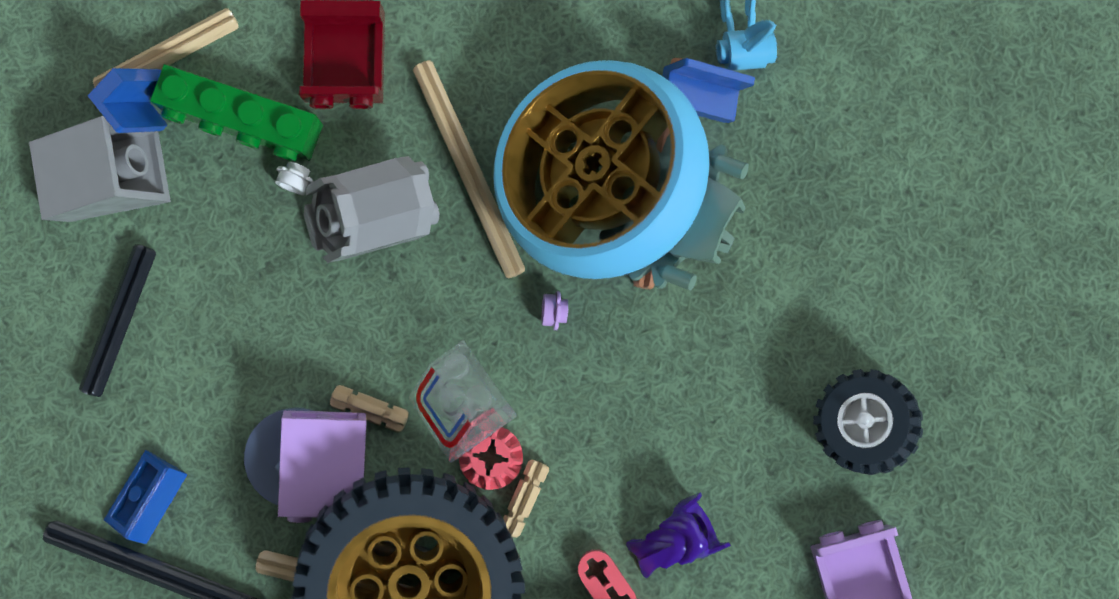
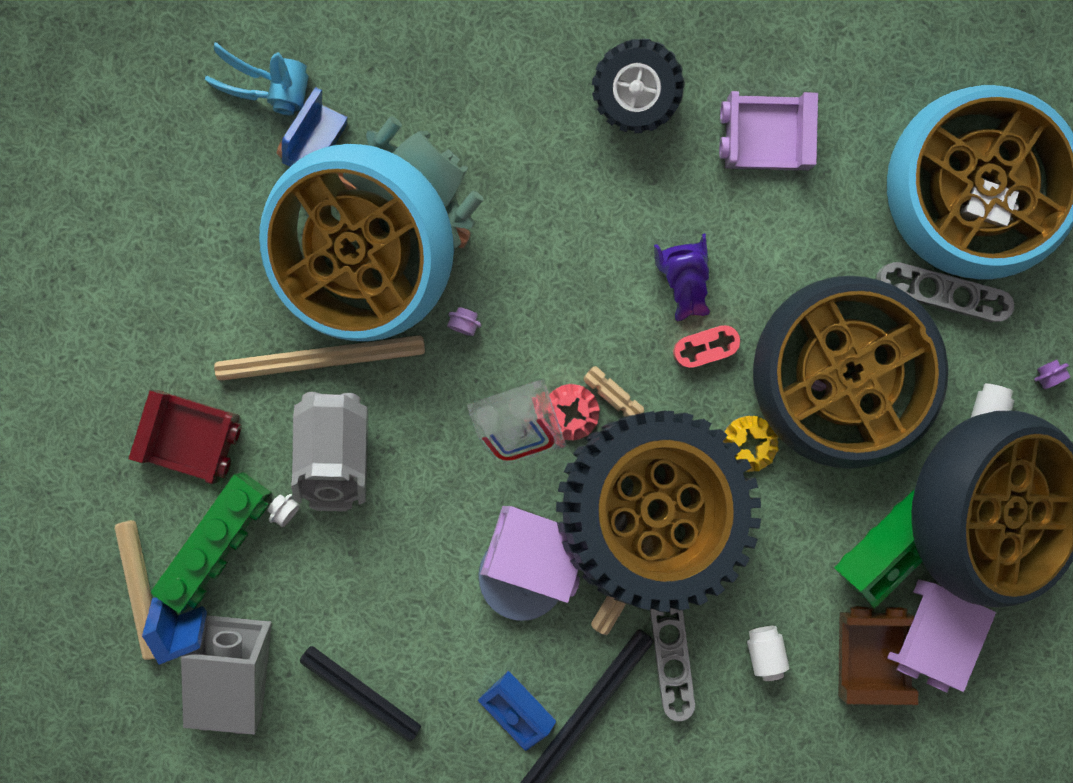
camera: 80 degrees left, 5 degrees up
(375, 409) = (501, 497): tan axle -> none

